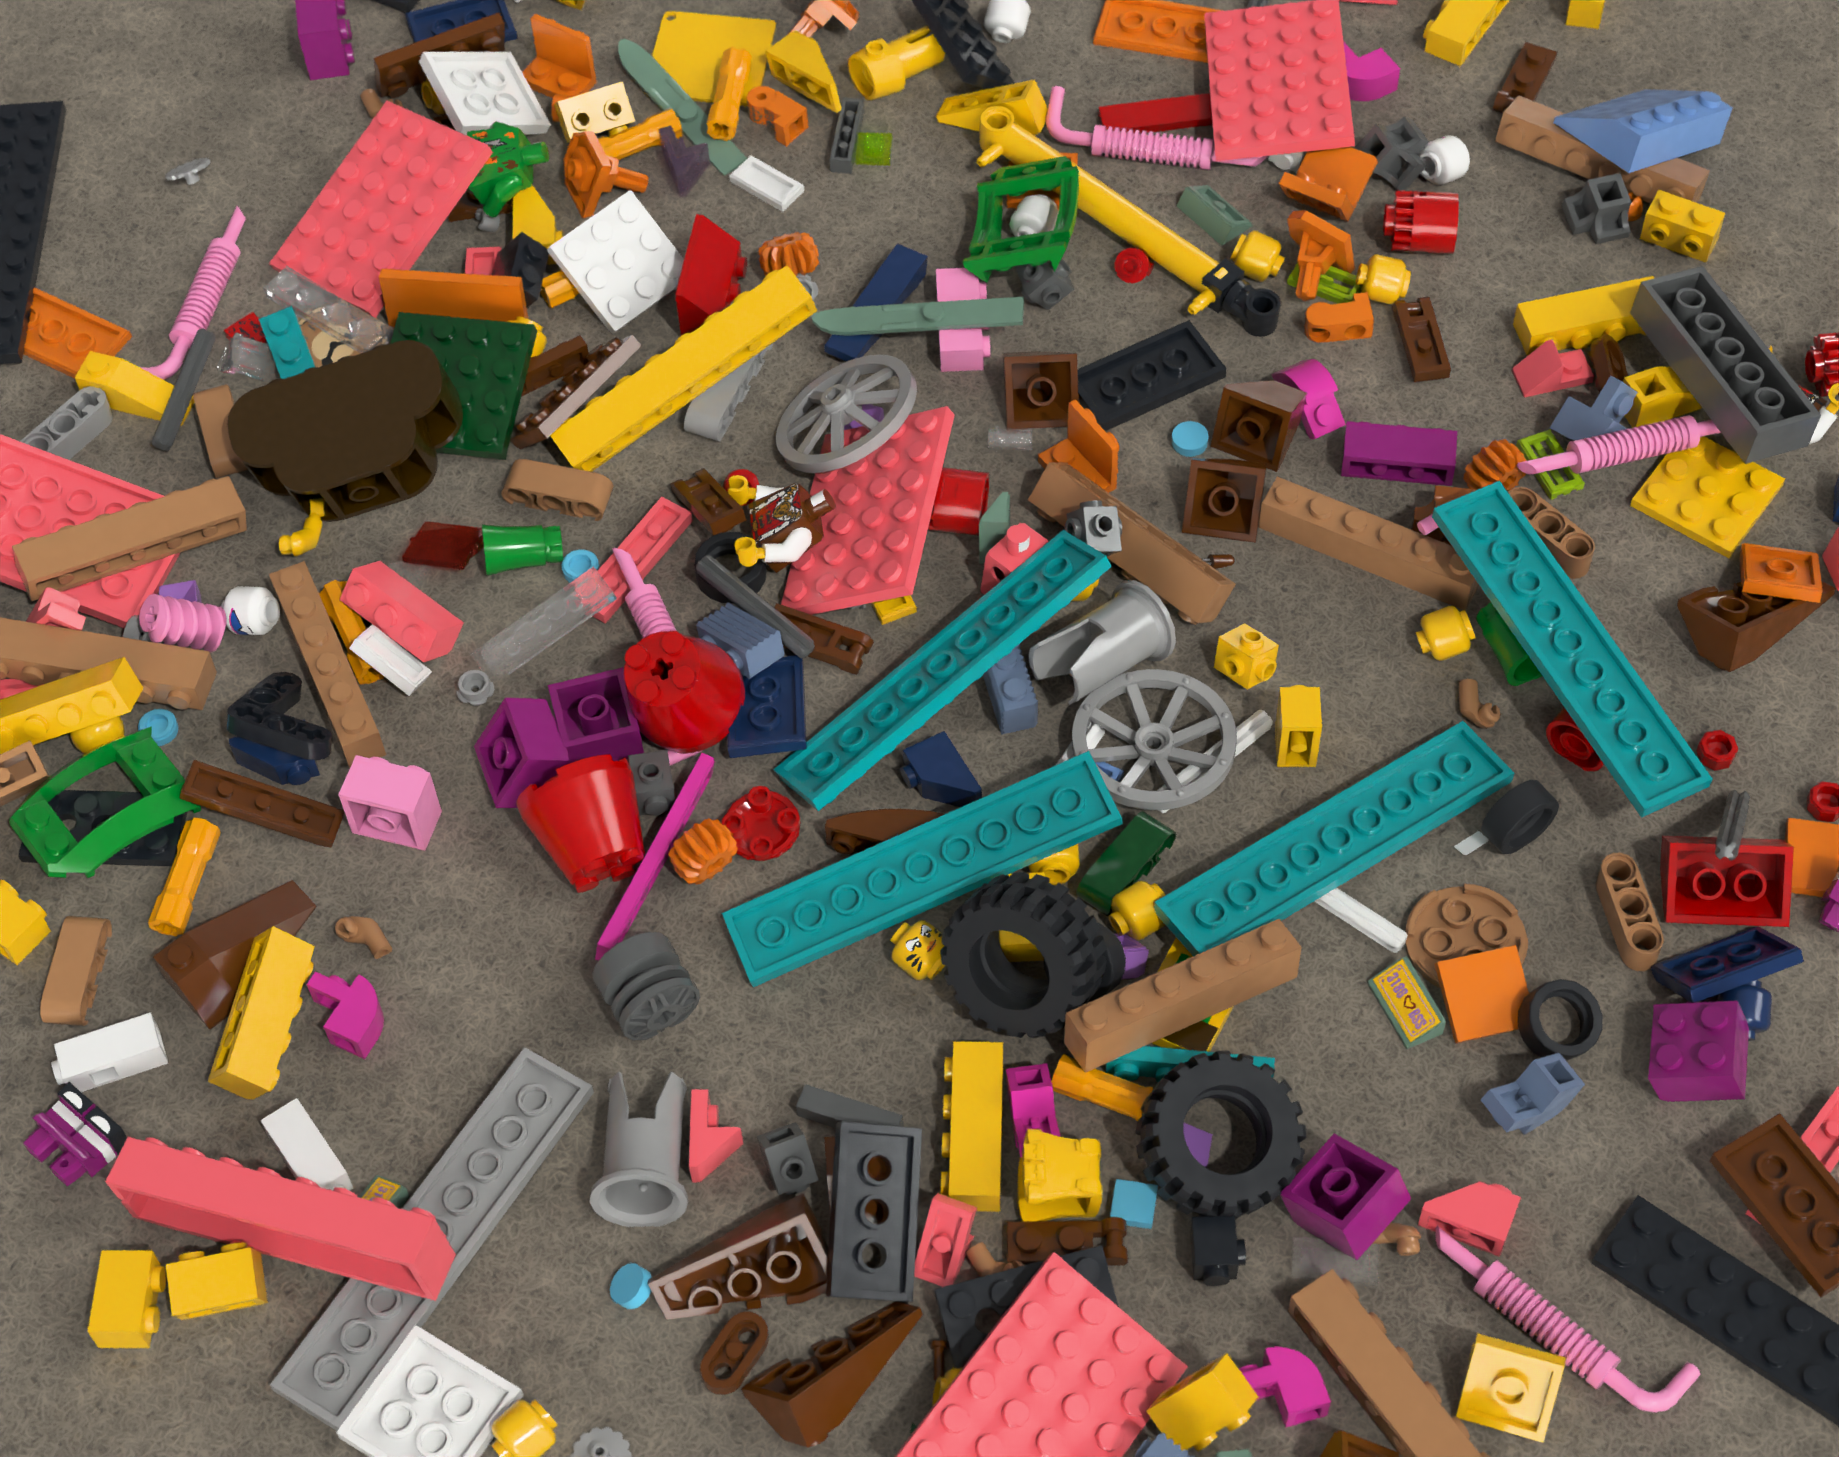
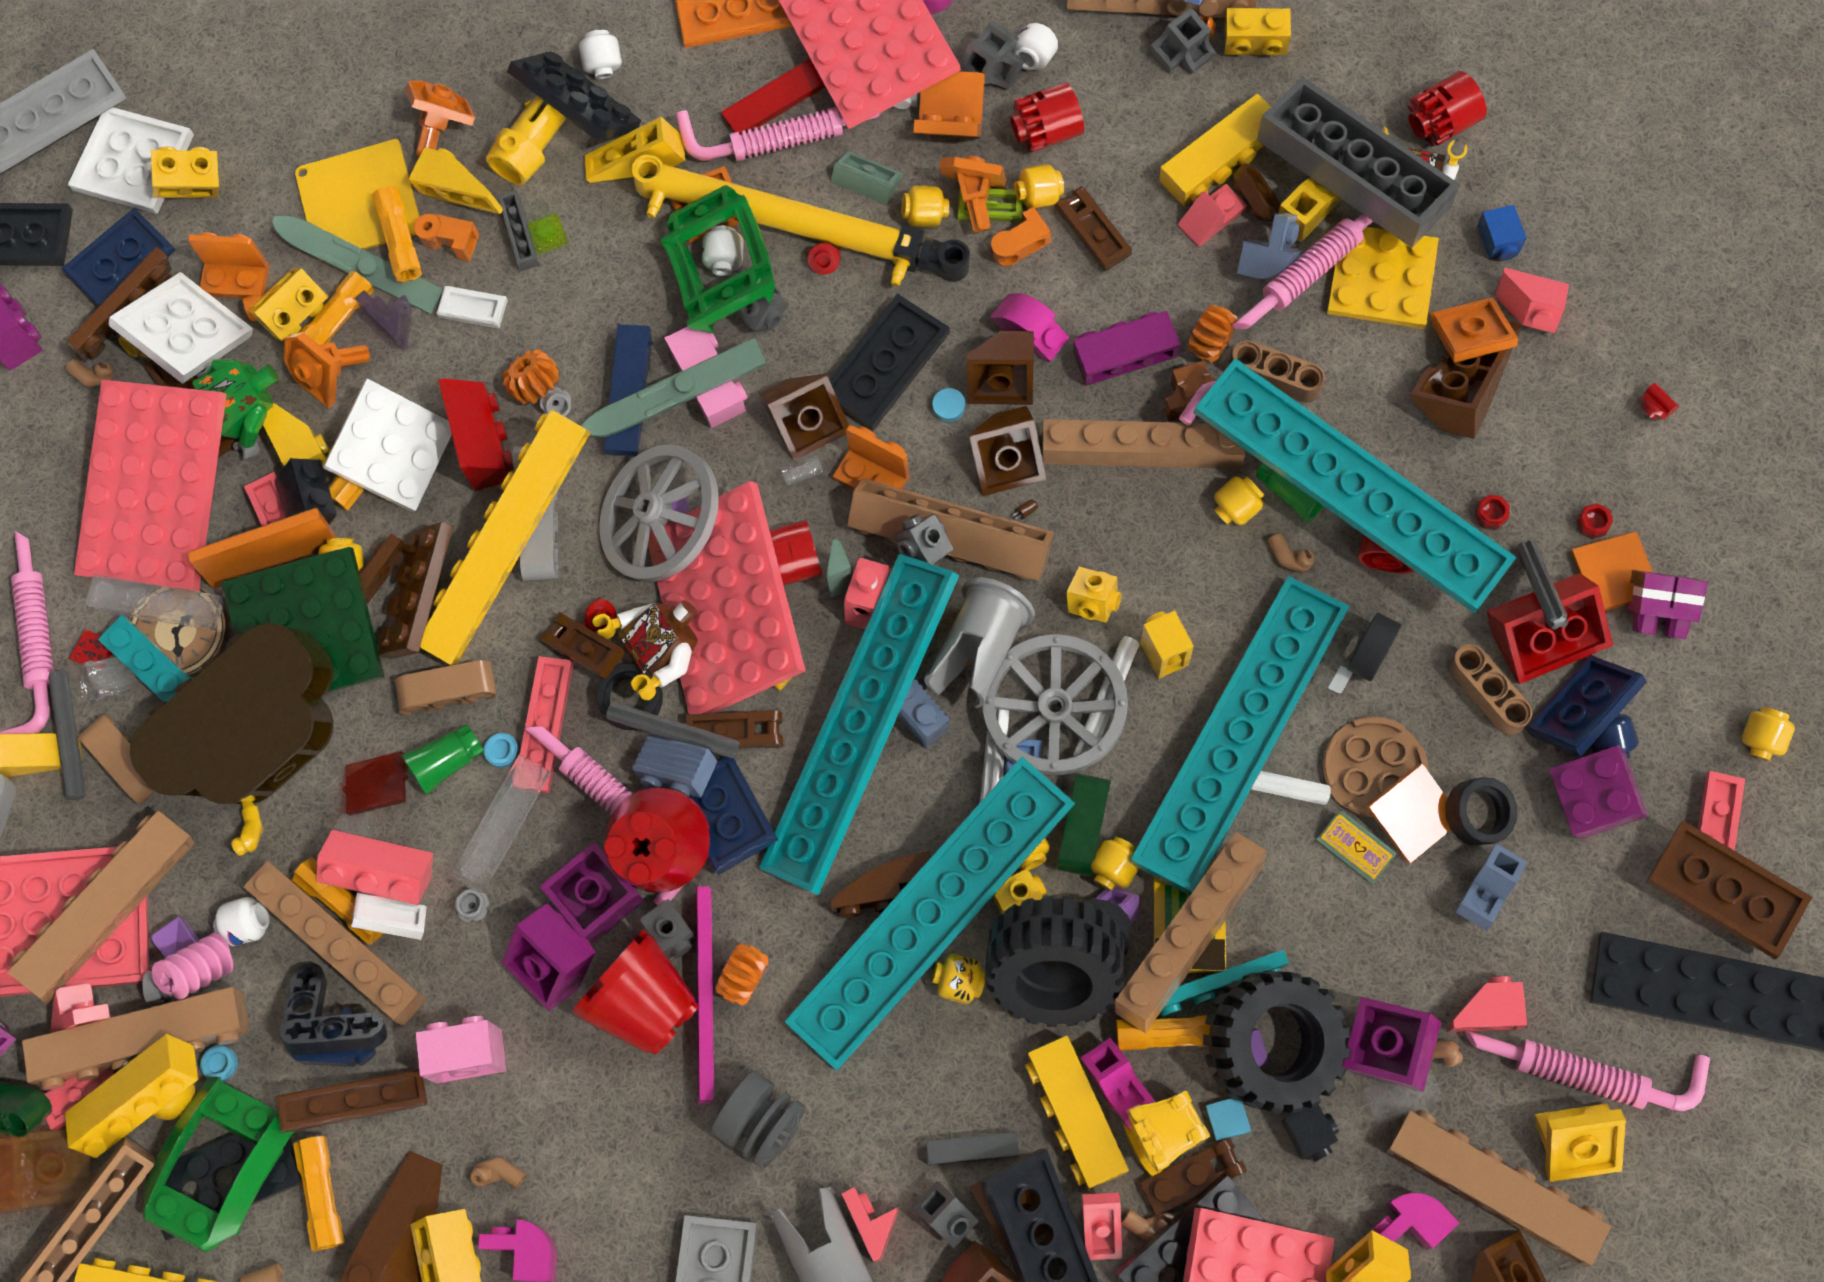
camera: 20 degrees left, 15 degrees up
(763, 824) = (774, 922): red dish -> none
(939, 772) = (897, 811): dark blue slope -> none
(1547, 484) = (1226, 286): lime tile -> none

